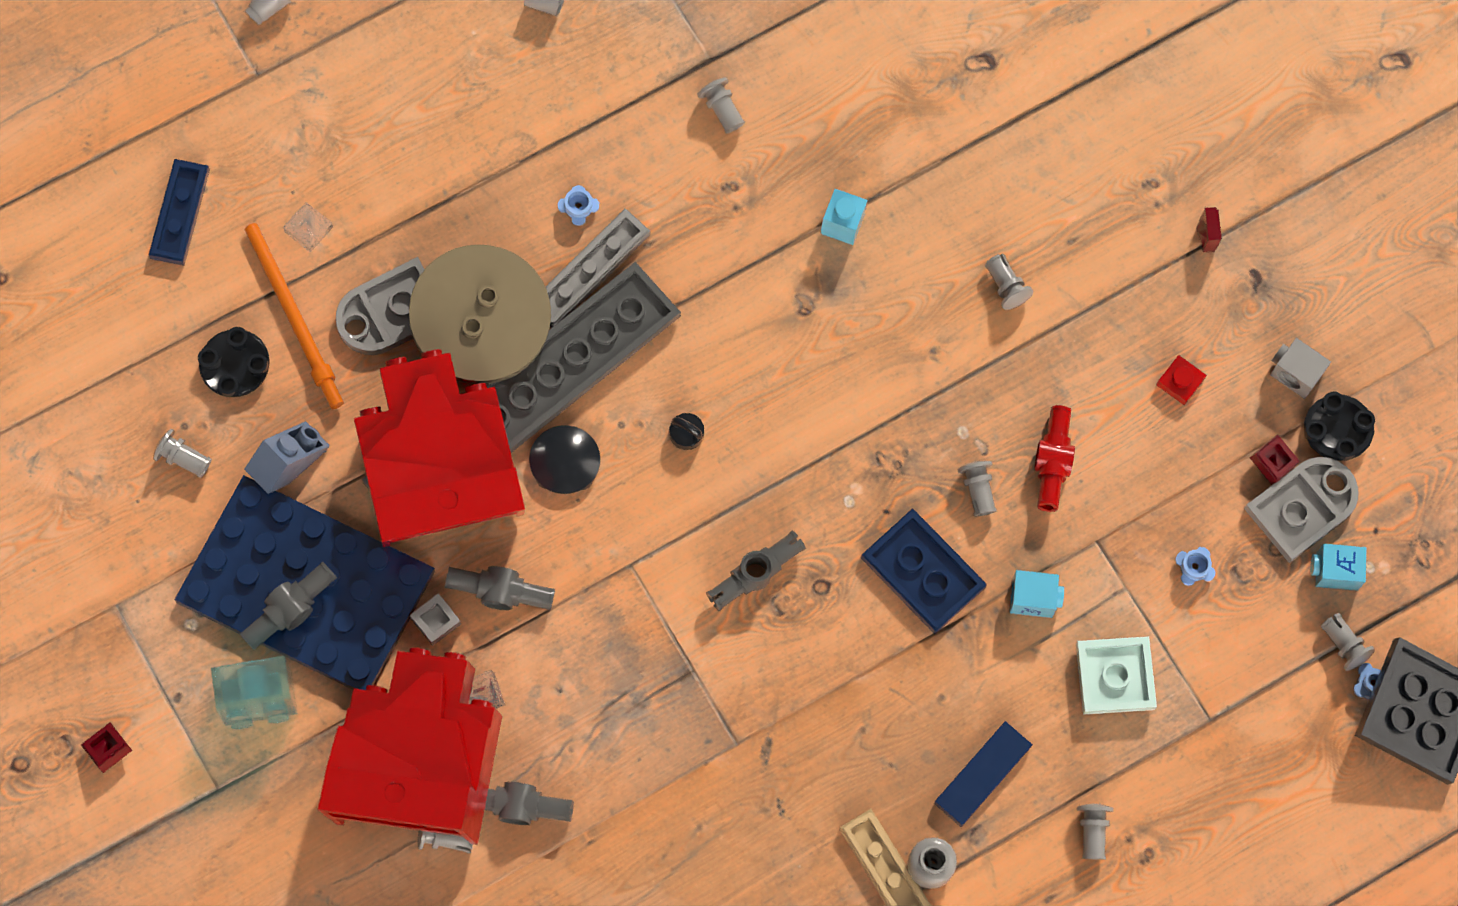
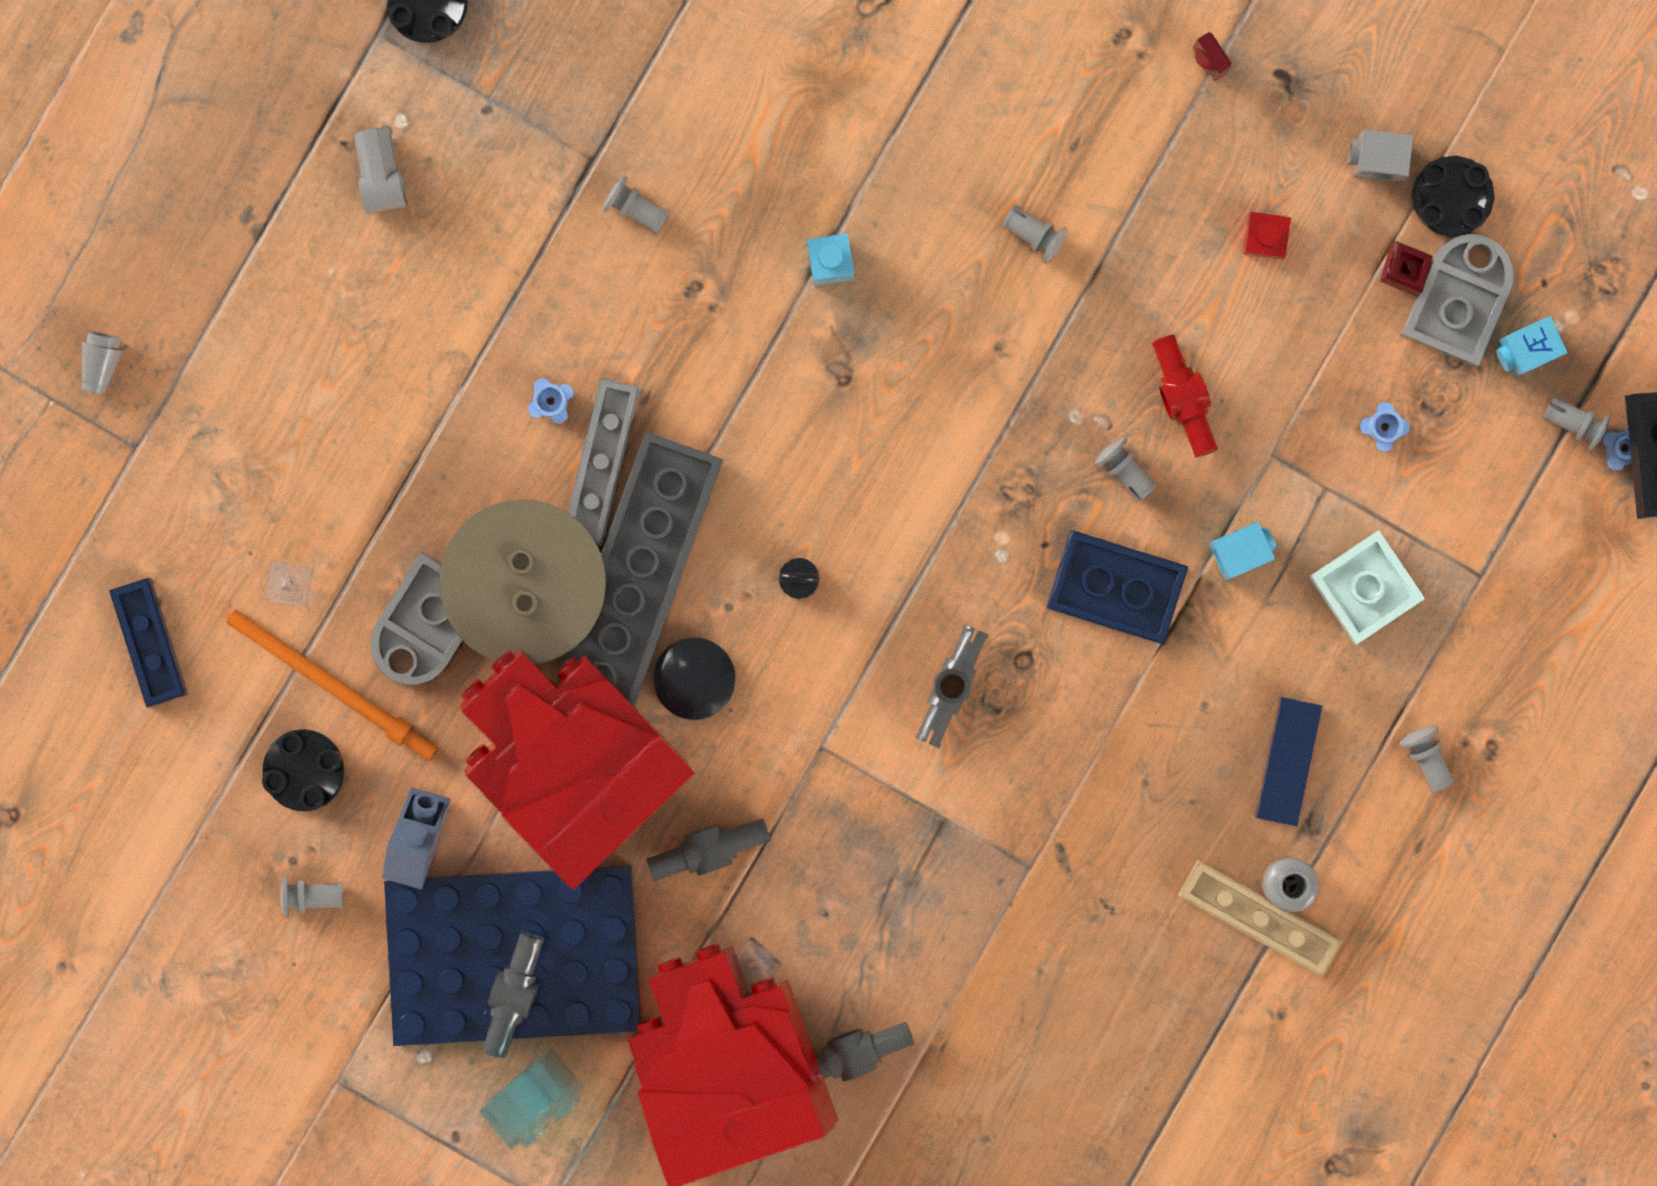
camera: 25 degrees left, 15 degrees up
(435, 619) = (663, 918): light grey plate -> none

